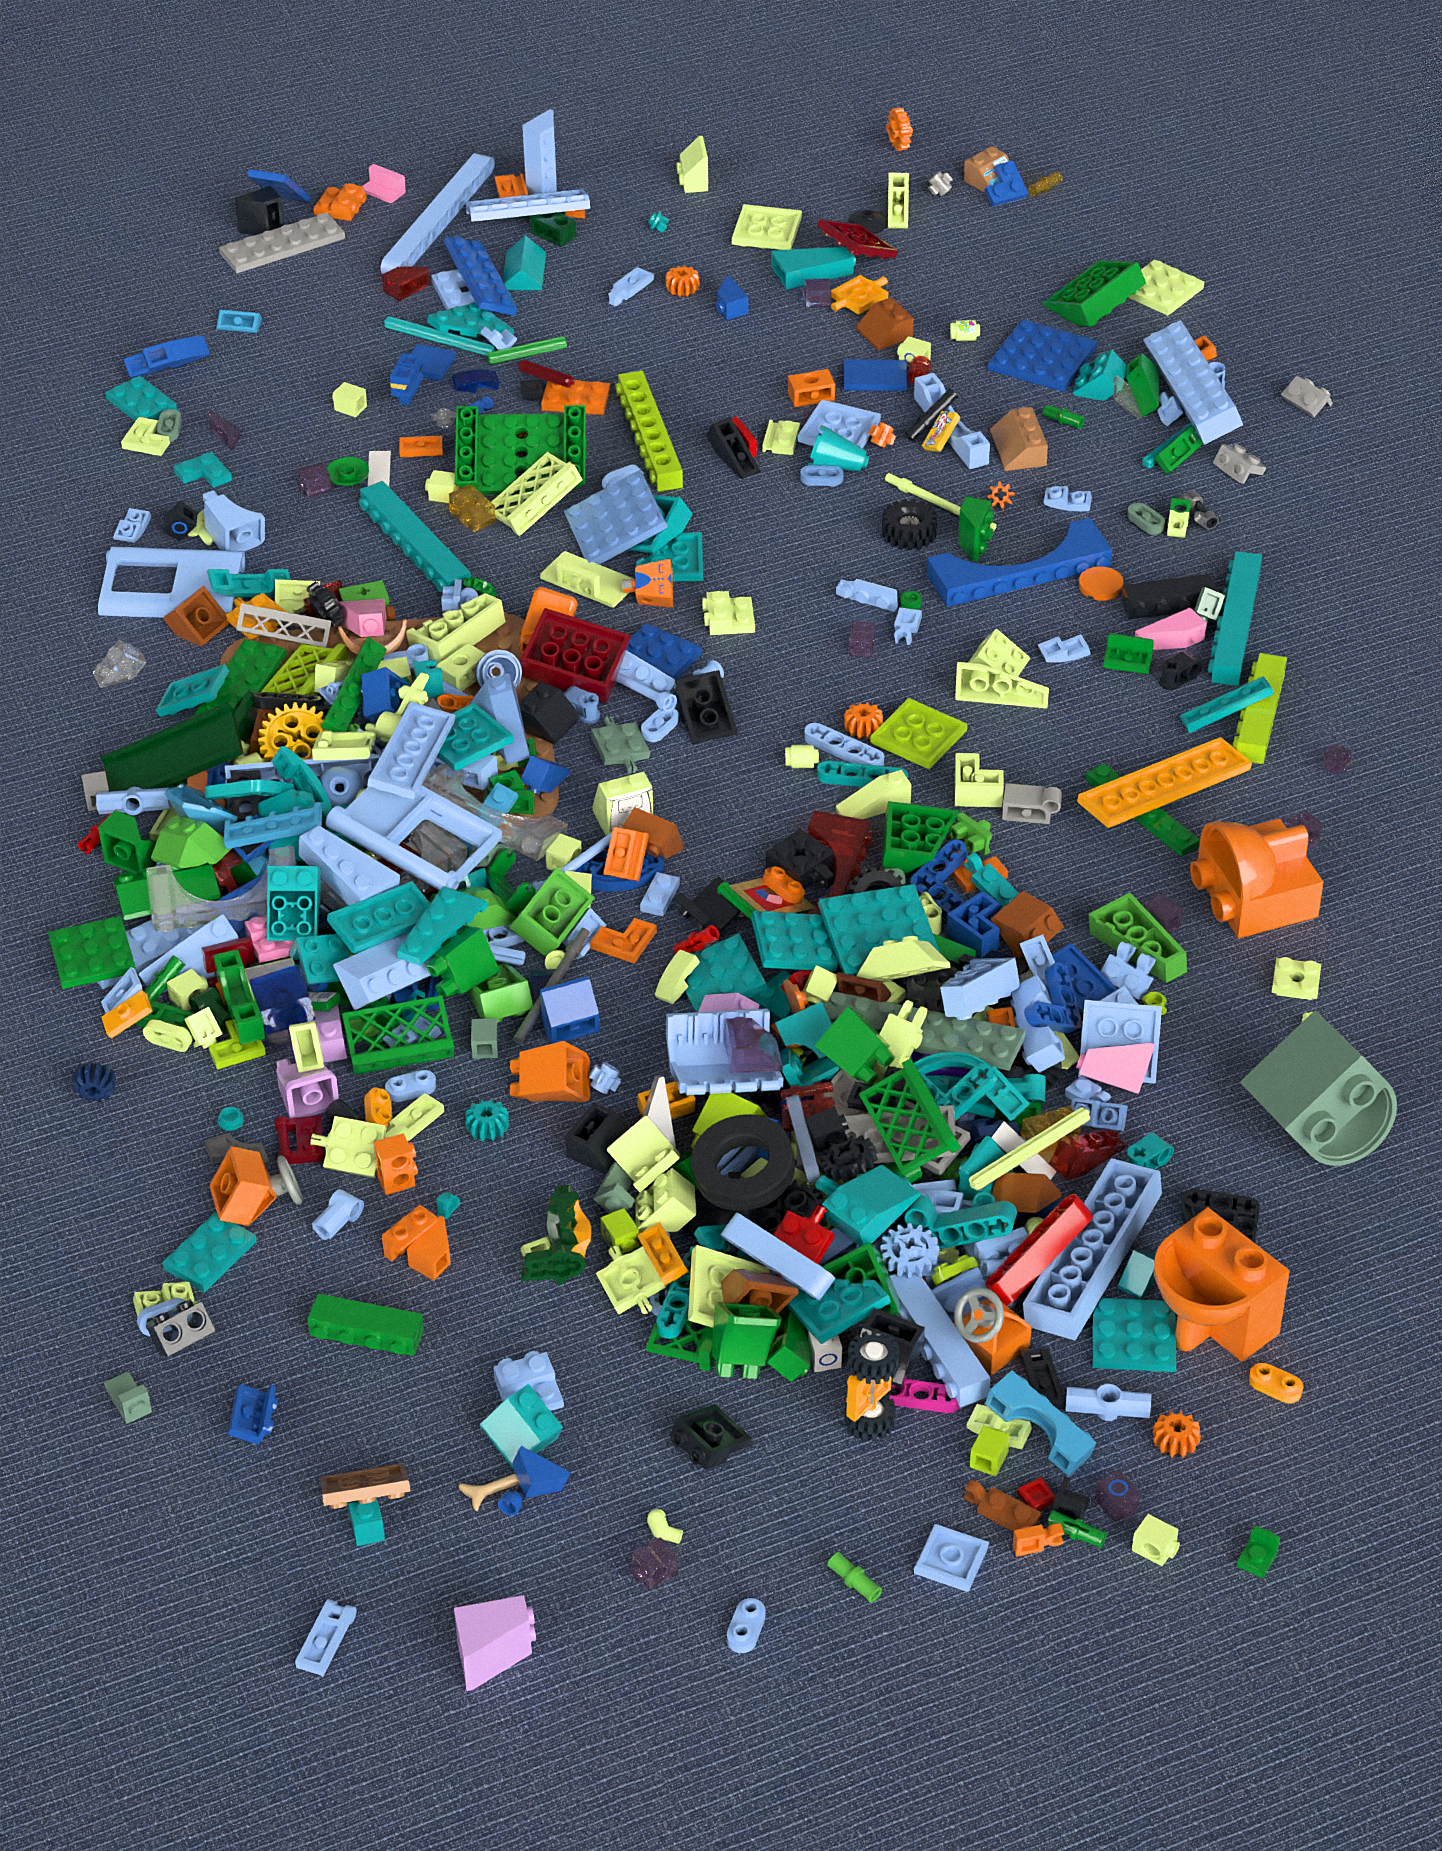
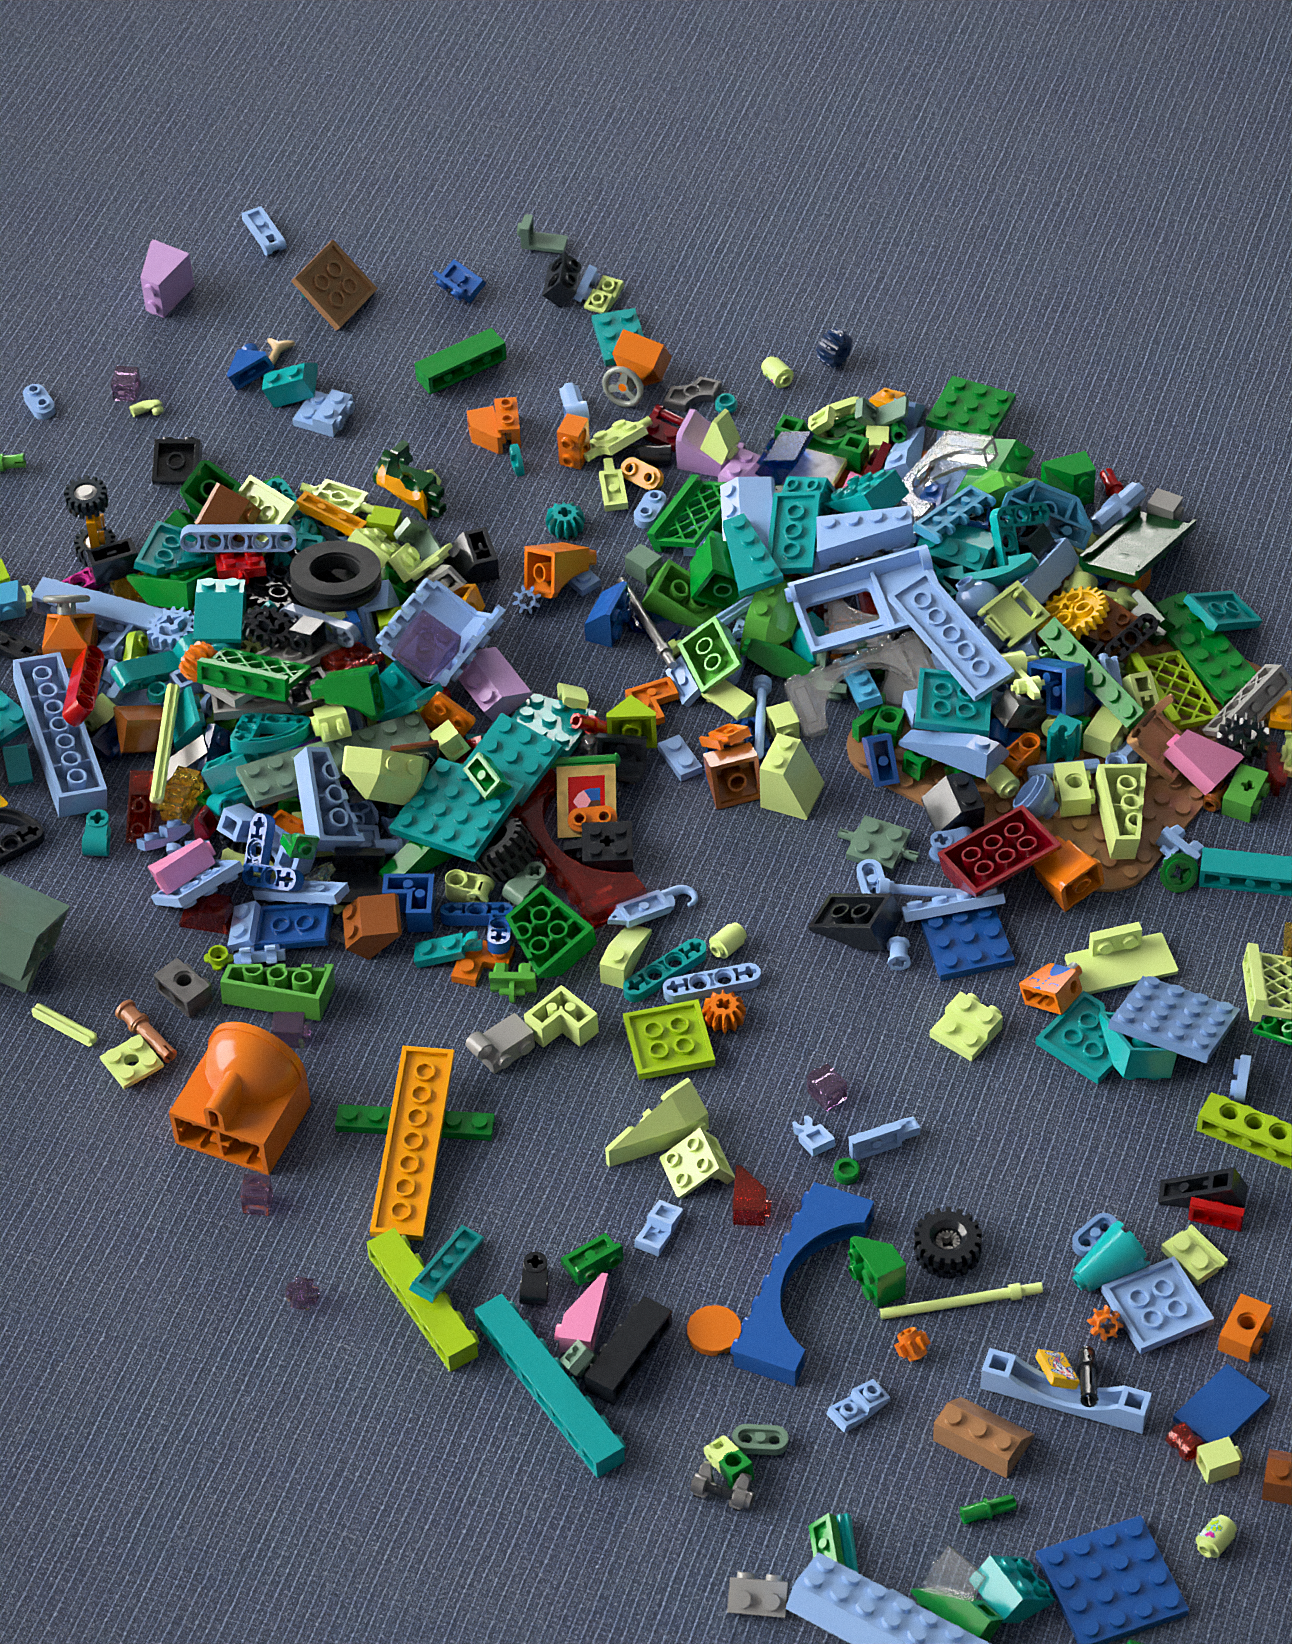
camera: 135 degrees right, 5 degrees up
(157, 1107) = (777, 371): none -> yellowish green brick
(158, 983) = (869, 414): none -> sand green bracket
(673, 917) = (633, 718): none -> lime slope
(806, 809) = (650, 906): none -> light blue plate
(839, 916) = (486, 776): none -> green slope
(934, 1178) = (189, 661): none -> orange gear
(995, 615) = (749, 1200): none -> clear red slope
(1029, 978) = (300, 845): none -> green bracket
(1060, 1095) = (205, 823): none -> dark red slope
(1205, 996) = (183, 987): none -> flat silver brick
(1264, 997) = (139, 1024): none -> nougat pin

